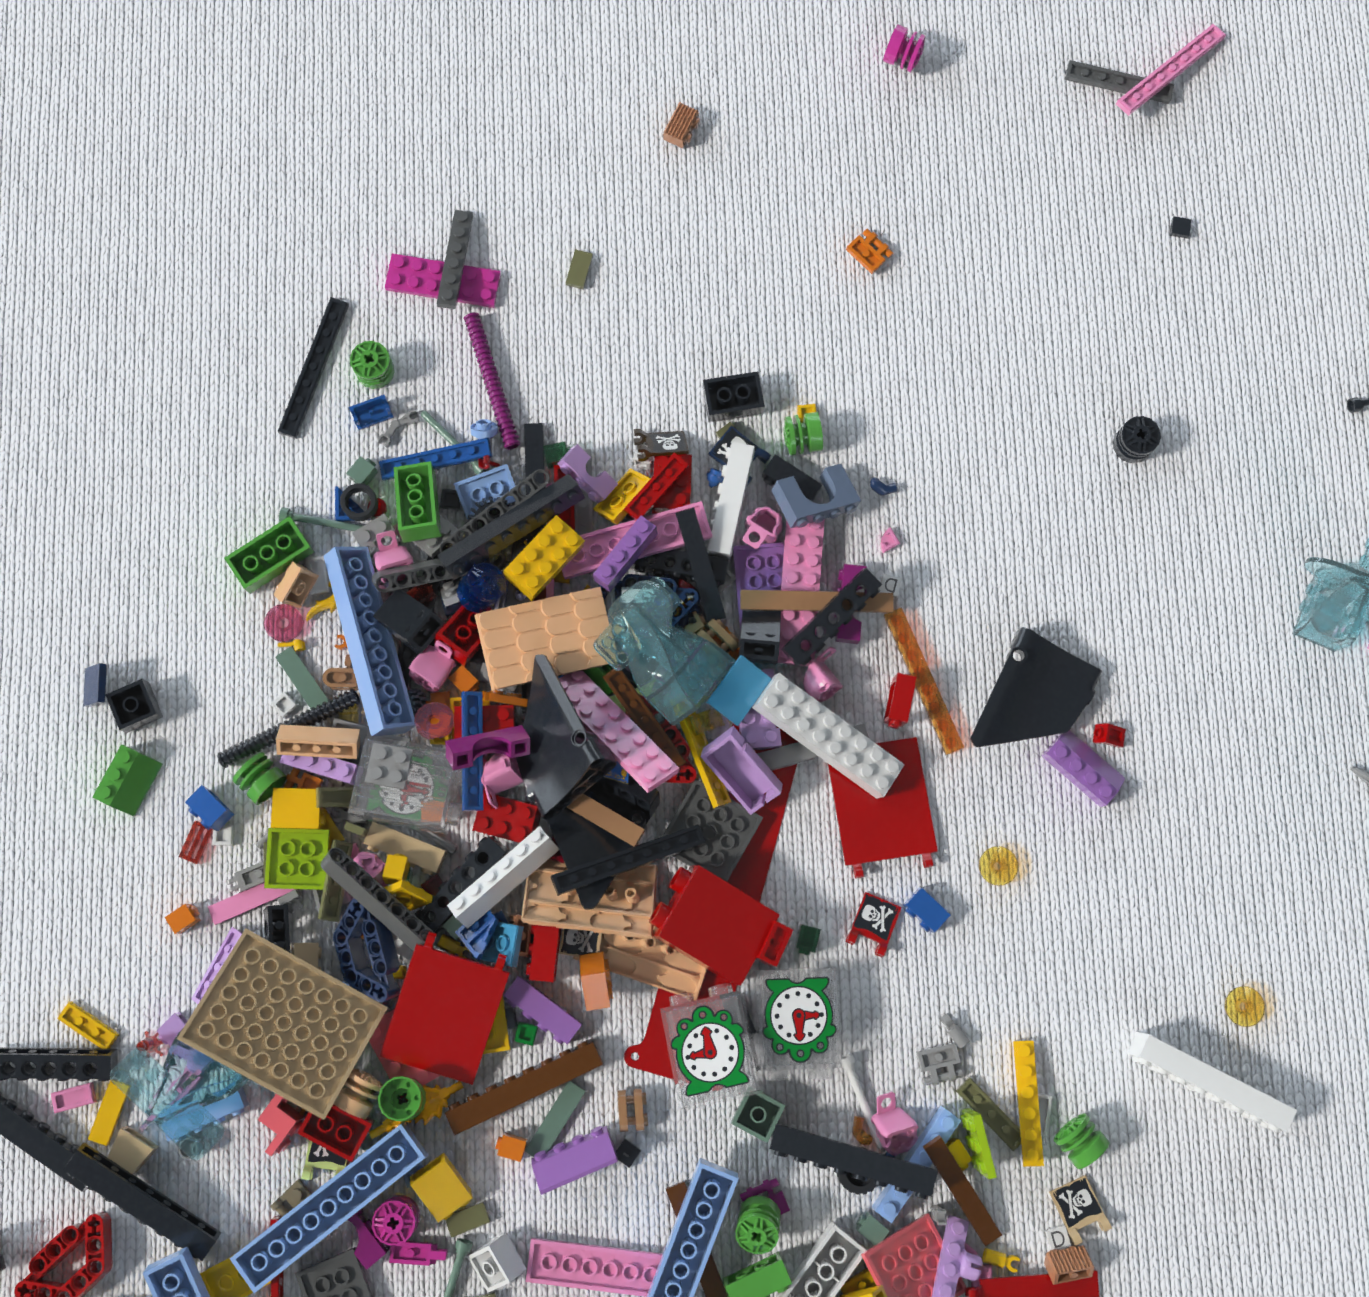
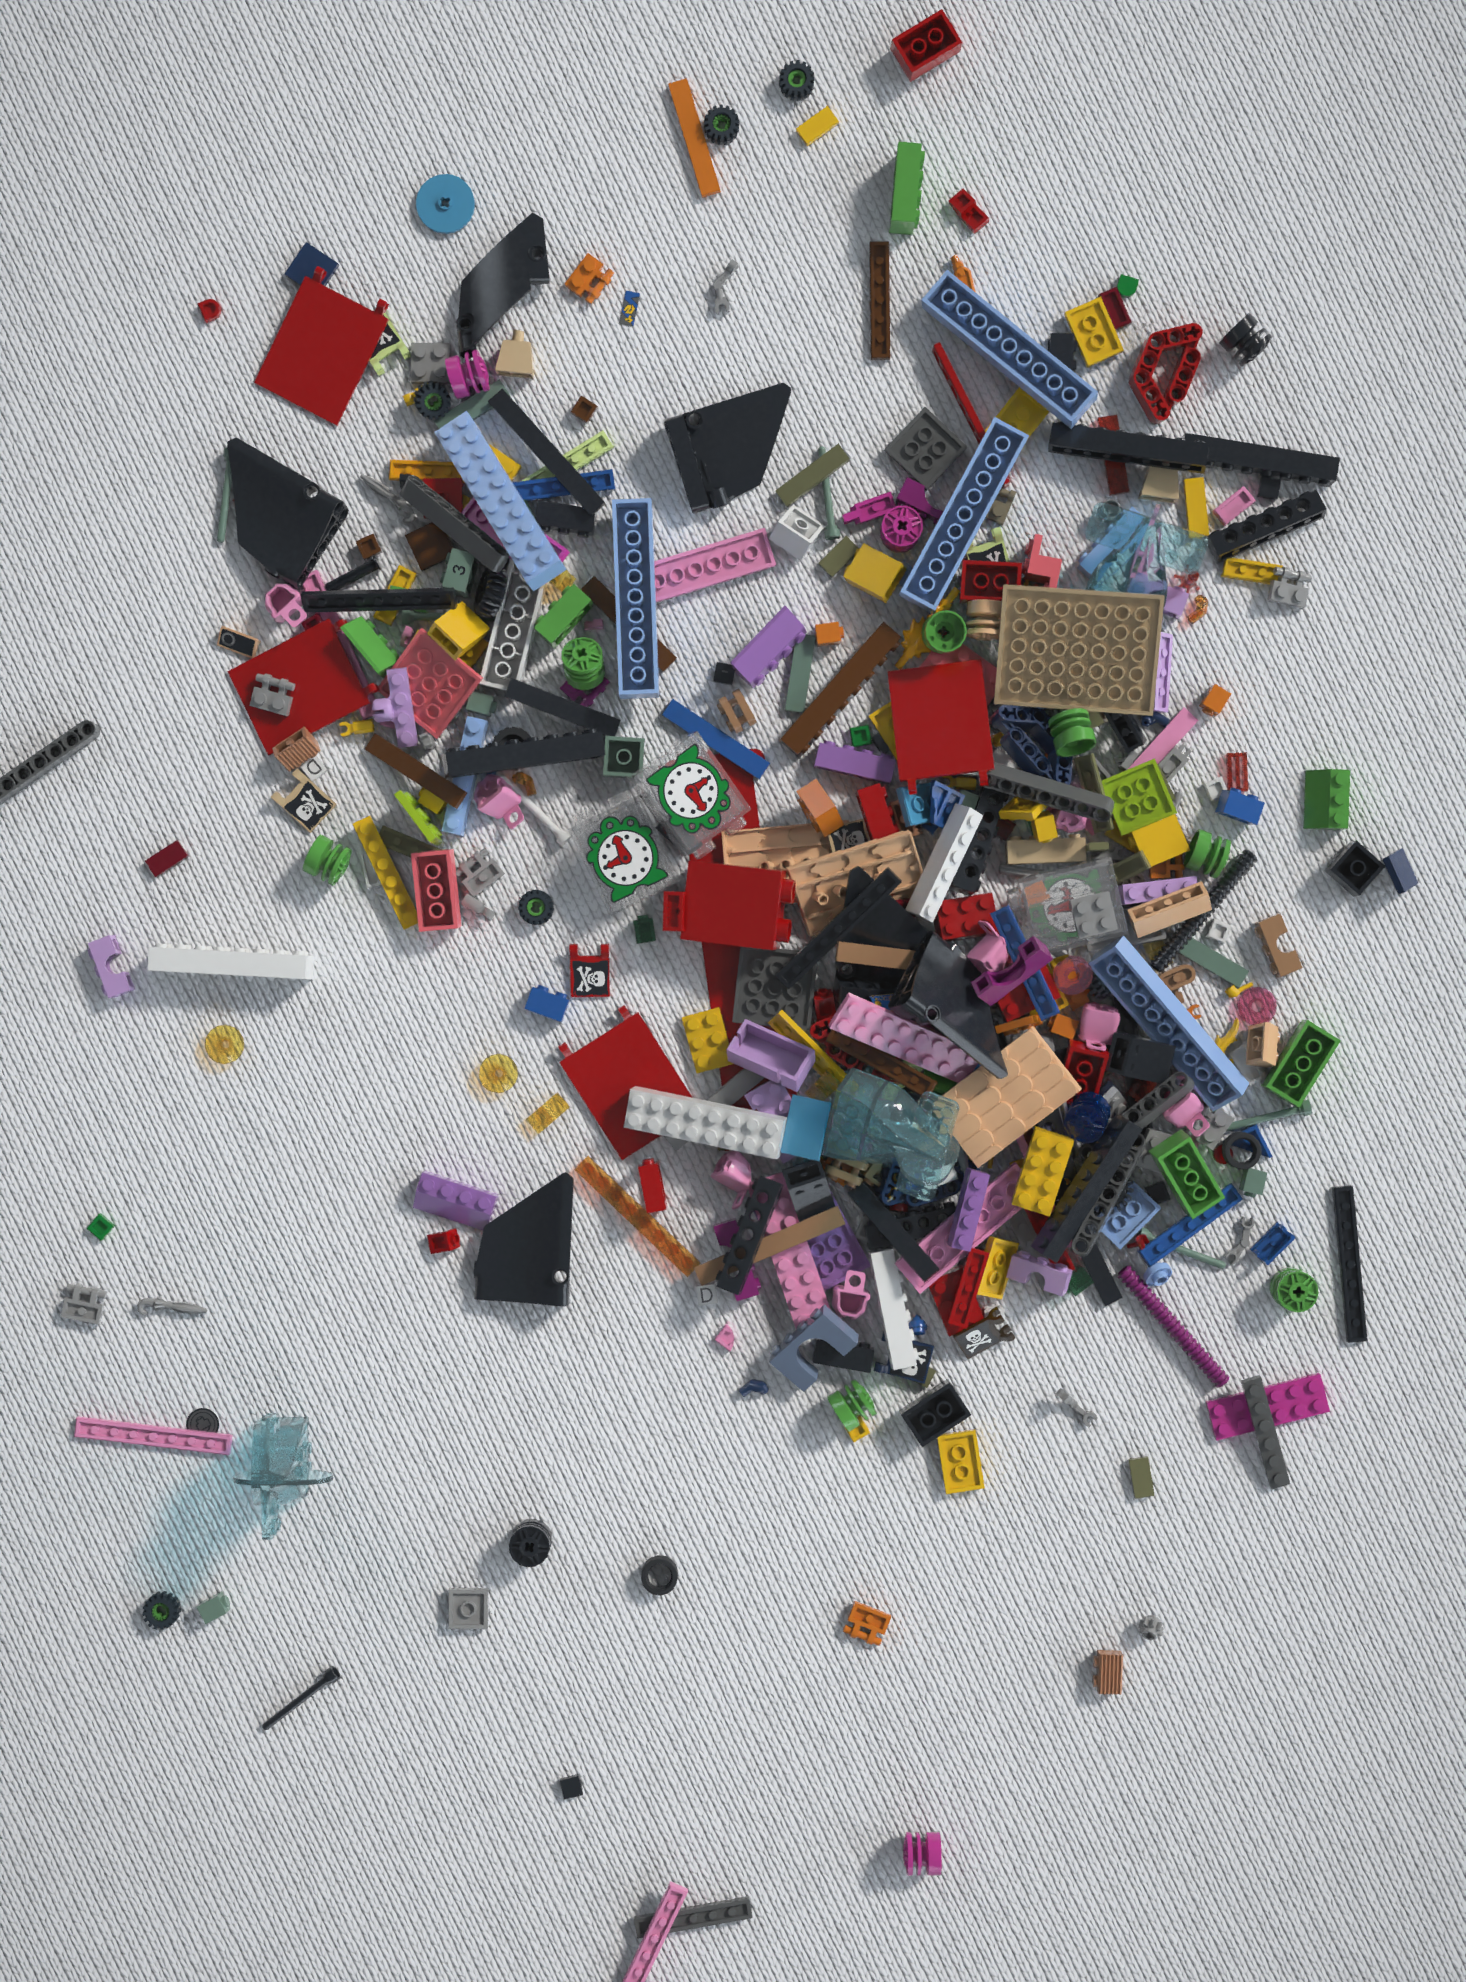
camera: 165 degrees right, 10 degrees up
(32, 1100) = (1269, 488): none -> black tile
(66, 989) = (1287, 593): none -> light grey plate
(153, 1010) = (1201, 609): none -> clear orange arm
(166, 1184) = (1115, 471): none -> clear red tile
(240, 683) = (1269, 931): none -> medium nougat arch
(240, 921) = (1156, 718): none -> dark blue arm
(327, 946) = (1072, 732): none -> bright green wheel
(609, 354) = (1073, 1404): none -> light grey piece
(629, 145) = (1151, 1627): none -> light grey gear
(662, 1092) = (716, 739): none -> blue tile
(671, 797) = (824, 1003): none -> red bracket
(728, 347) = (960, 1461): none -> yellow plate
(729, 1258) = (596, 624): none -> bright pink tile
(792, 812) = (707, 1039): none -> yellow plate
(797, 1189) = (561, 707): none -> black tile
(892, 998) = (546, 907): none -> black bush
(967, 809) = (547, 1113): none -> clear yellow slope
(988, 1065) = (436, 890): none -> coral brick
(1038, 353) = (656, 1590): none -> black tyre
(1212, 409) = (468, 1608): none -> light grey plate
(1233, 1212) = (167, 858): none -> dark red tile
(1329, 1146) = (102, 952): none -> lavender arch

